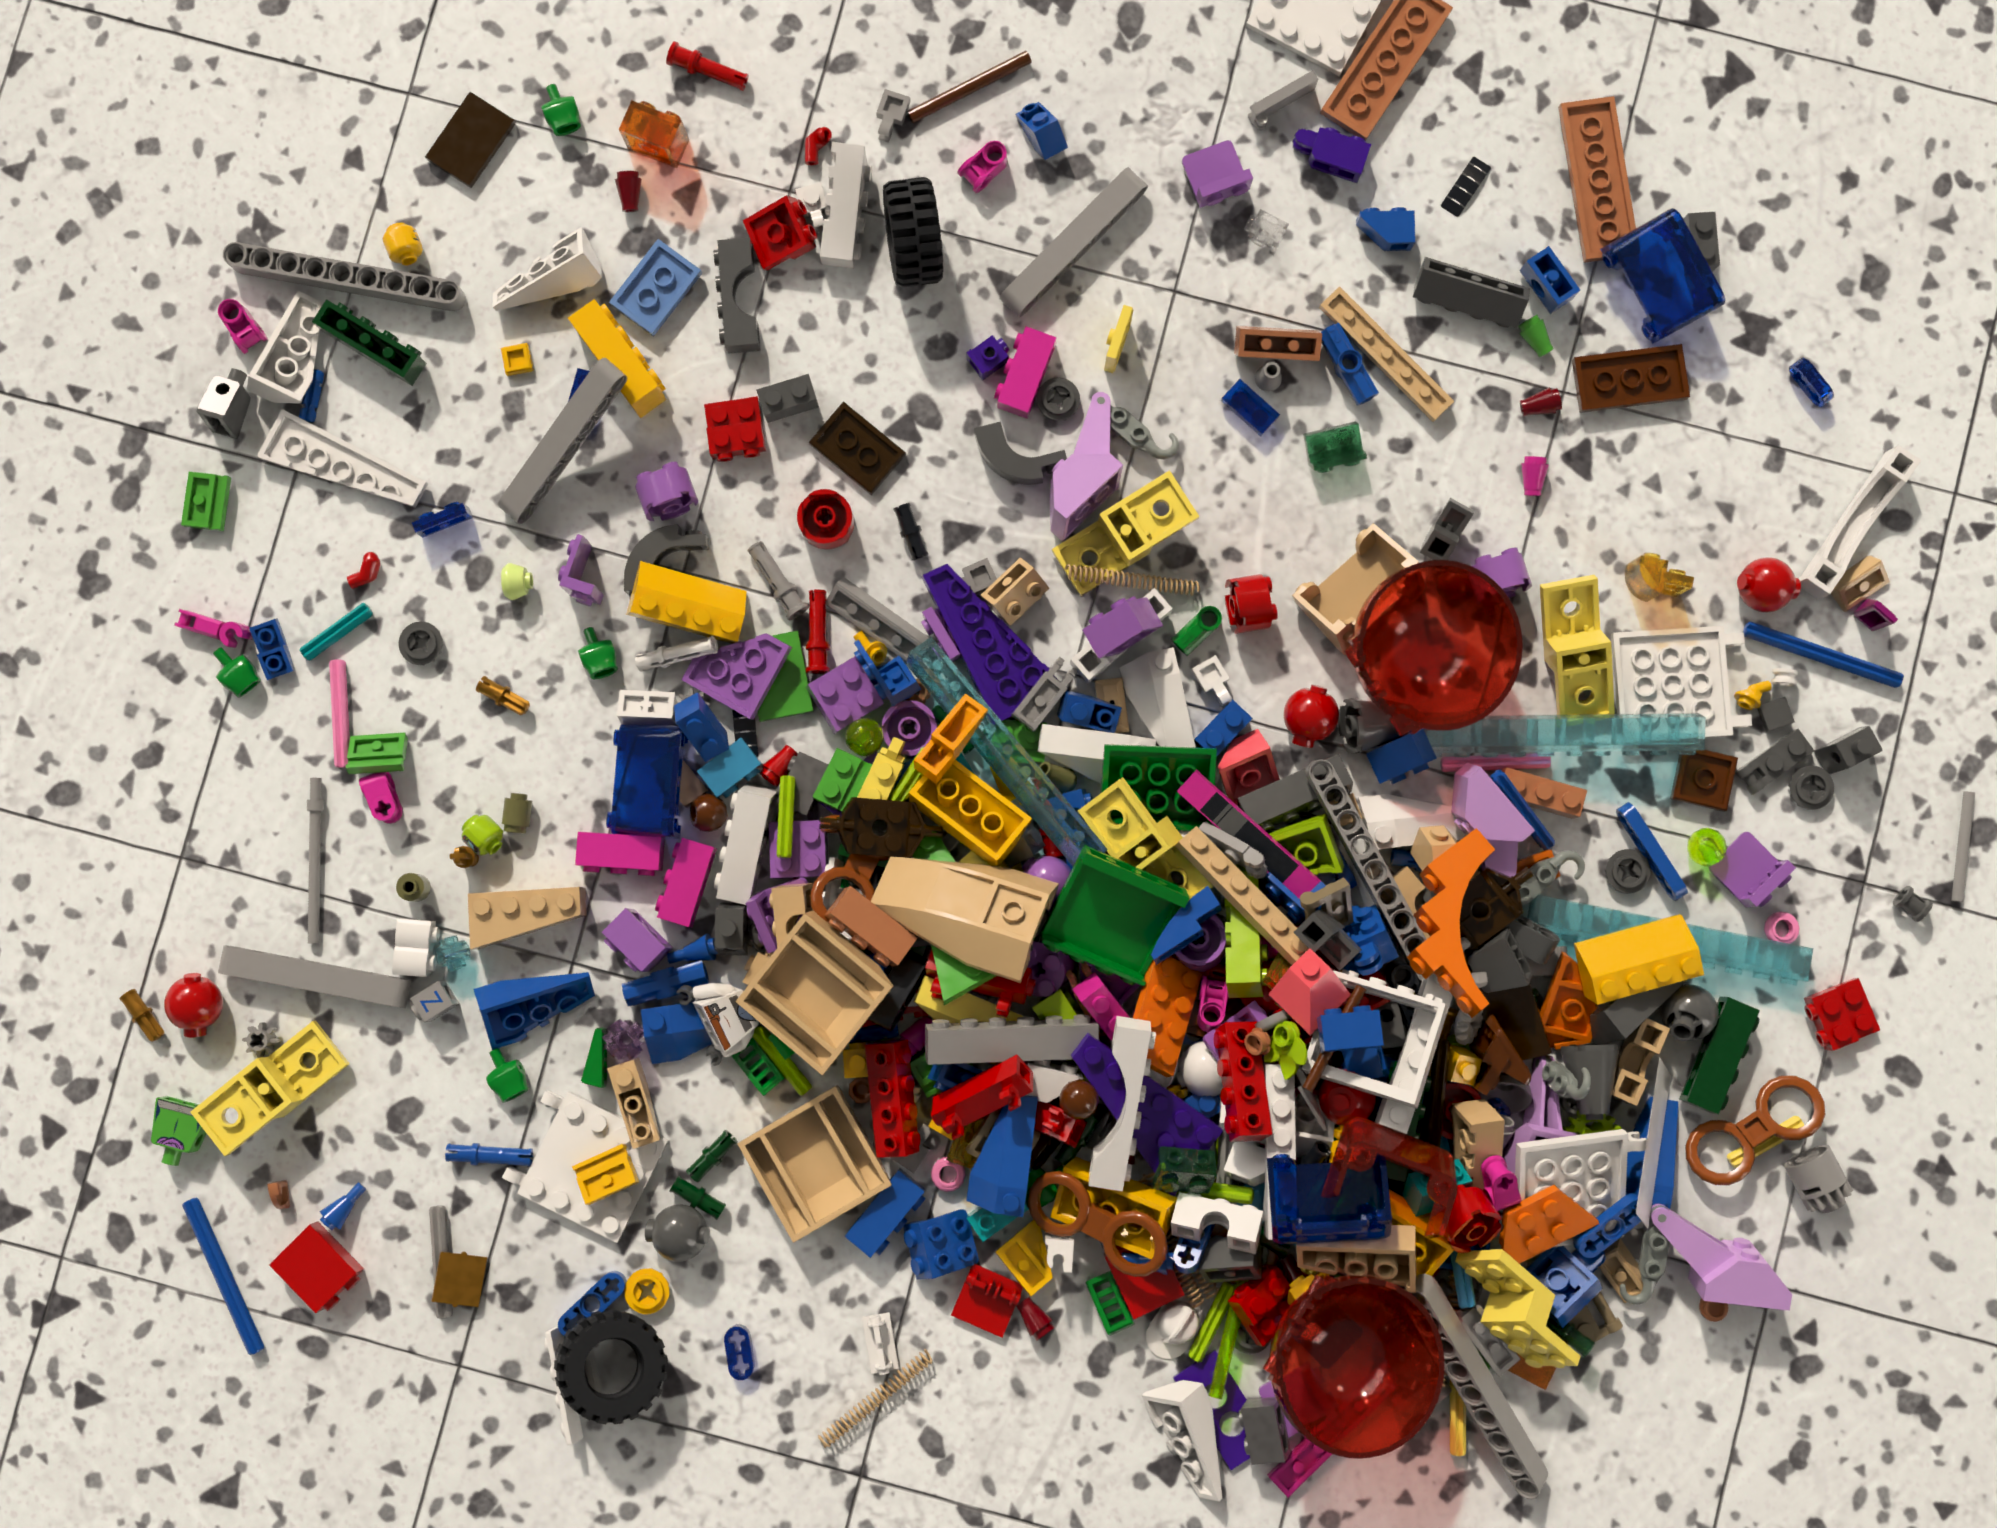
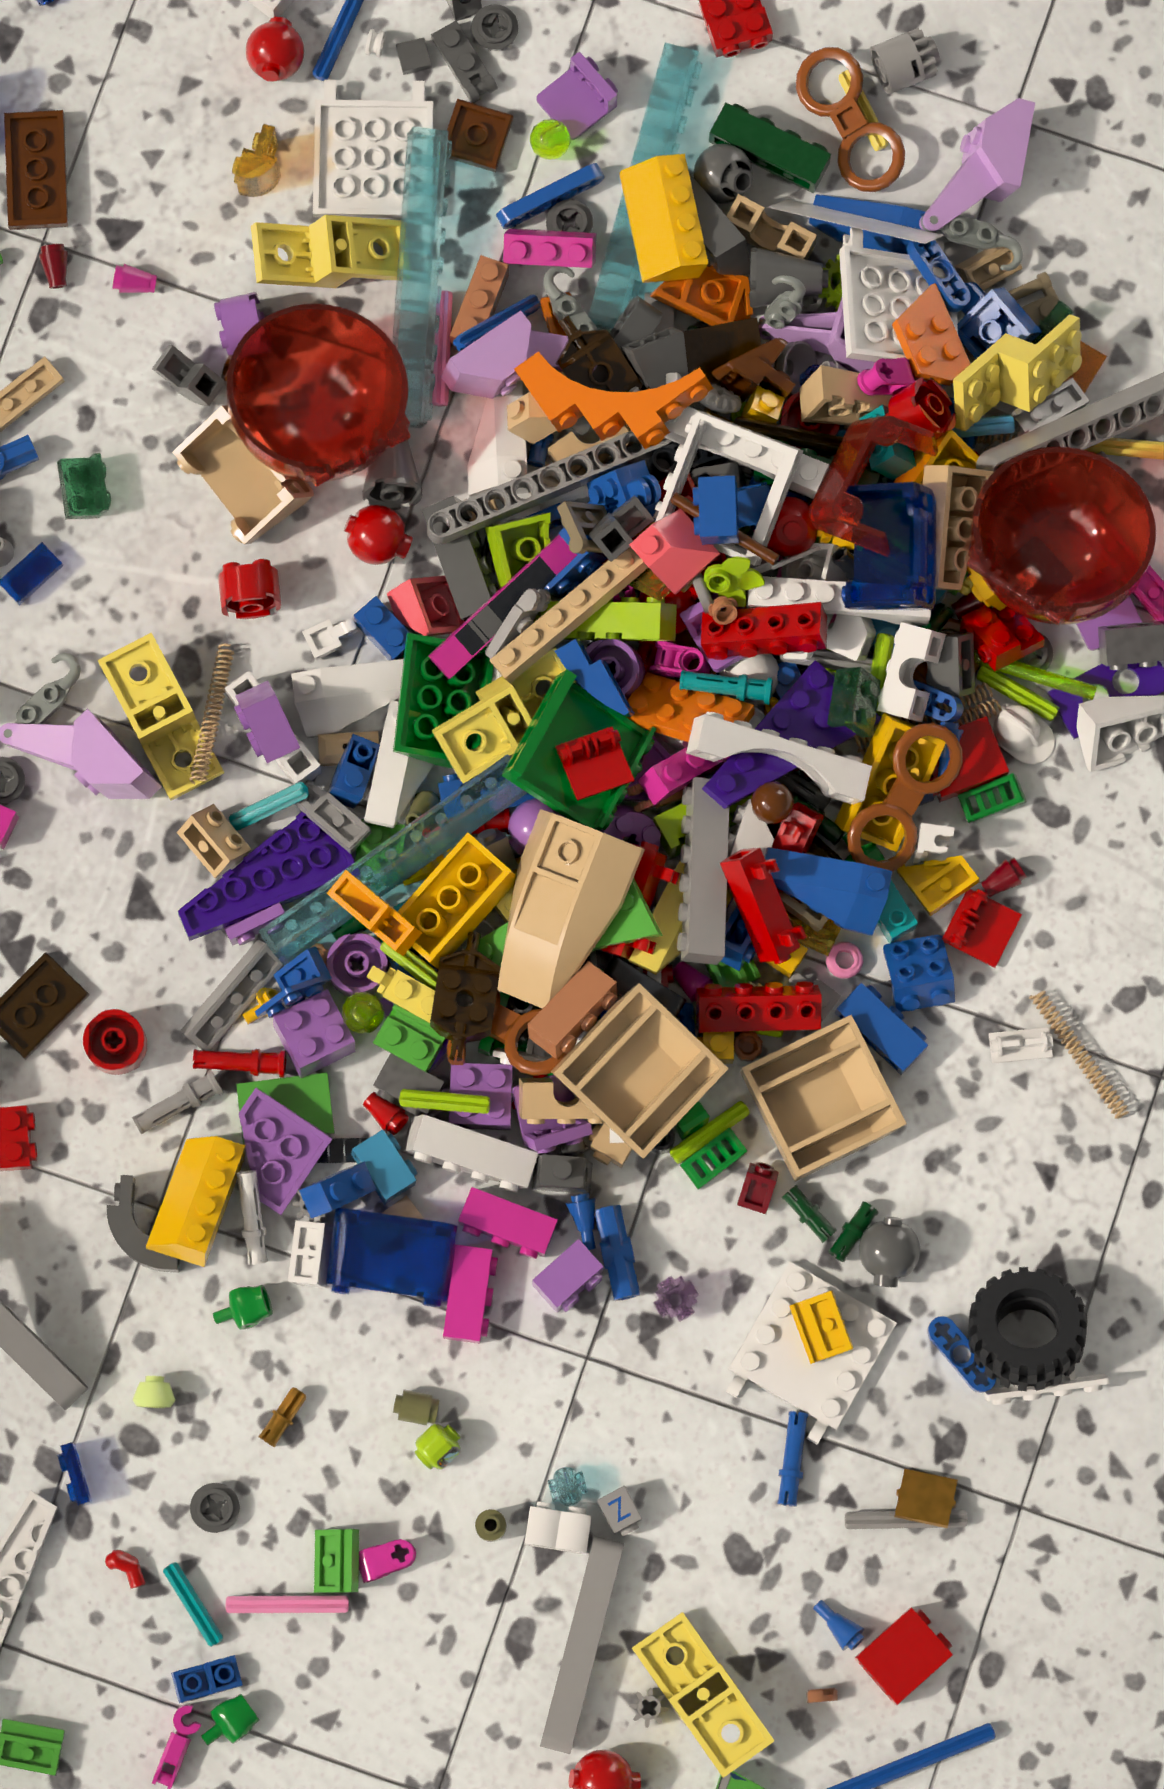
camera: 90 degrees left, 5 degrees down
(315, 806) = (390, 1637): light grey bar -> none
(464, 857) = (461, 1465): pearl gold axle -> none
(508, 1078) = (710, 1433): green piece -> none
(510, 914) = (528, 1415): tan wedge -> none
(520, 1005) = (629, 1416): blue wedge -> none
(571, 573) = (173, 1316): medium lavender bracket -> none
(596, 1064) = (703, 1334): green slope -> none
(634, 1102) = (745, 1291): tan slope -> none
(648, 1304) = (949, 1279): yellow gear -> none
(665, 492) = (69, 1216): medium lavender brick -> none
(673, 1032) = (666, 1228): blue wedge -> none
(708, 813) = (432, 1193): reddish brown piece -> none
(724, 1019) = (659, 1184): white torso -> none
(733, 1108) = (758, 1187): none -> dark red bracket
(746, 1351) = (1023, 1204): clear blue beam -> none
(910, 531) = (135, 952): black pin -> none
(979, 575) = (192, 879): light grey plate -> none
(1008, 463) = (68, 841): dark grey arch -> none
(1050, 638) = (269, 806): none -> teal axle
(1104, 931) = (595, 763): none -> red hinge
(1189, 1063) = (740, 687): none -> teal pin
(1195, 631) = (274, 650): green piece -> none
(1401, 756) = (429, 444): blue brick -> none
(1600, 854) = (549, 248): none -> dark pink brick
(1713, 1310) = (1032, 179): nougat plate -> none
(1750, 697) = (394, 79): yellow plate -> none
(1793, 927) = (640, 60): bright pink piece -> none

